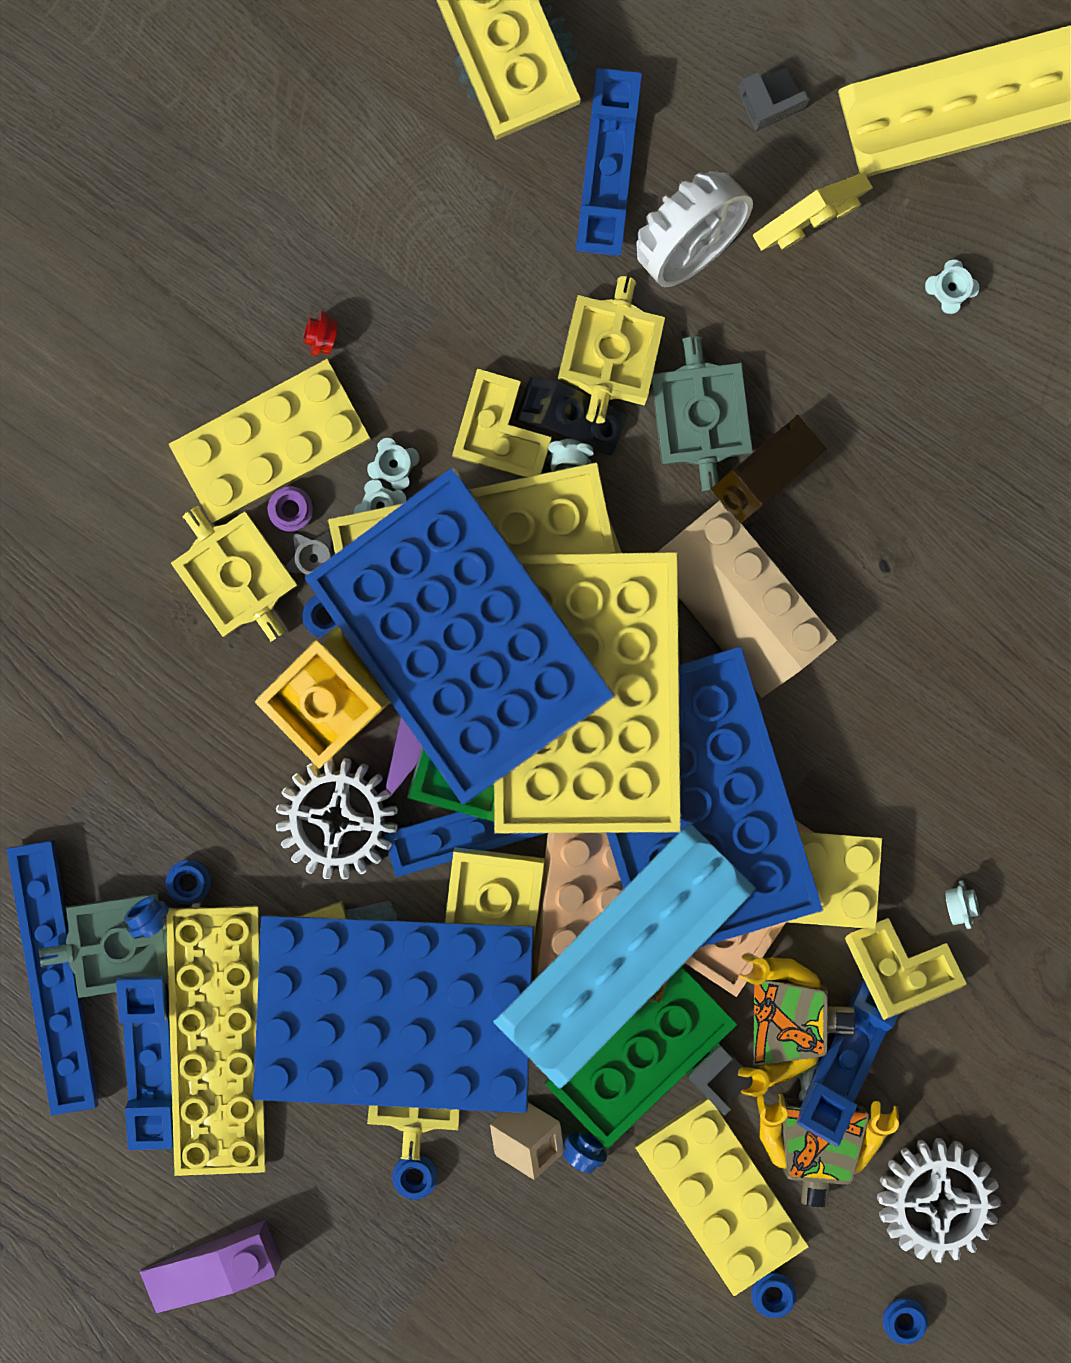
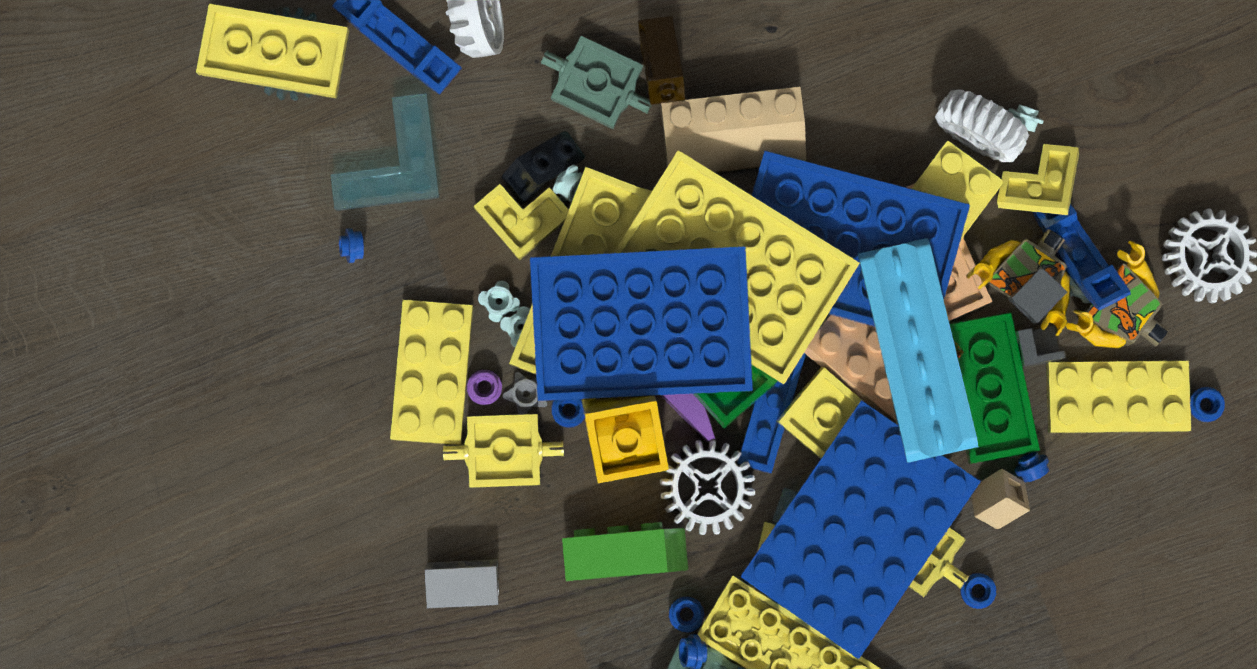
camera: 60 degrees left, 5 degrees down
(64, 622) = (462, 583): none -> light grey hinge
(207, 776) = (624, 552): none -> bright green wedge
(320, 334) = (384, 293): red plate -> none
(349, 264) = (351, 245): none -> blue plate
(474, 282) = (411, 180): none -> clear light blue plate
(611, 350) = (518, 112): light yellow plate -> none
(770, 1047) = (1037, 296): none -> dark grey panel
(922, 865) = (982, 125): none -> white gear

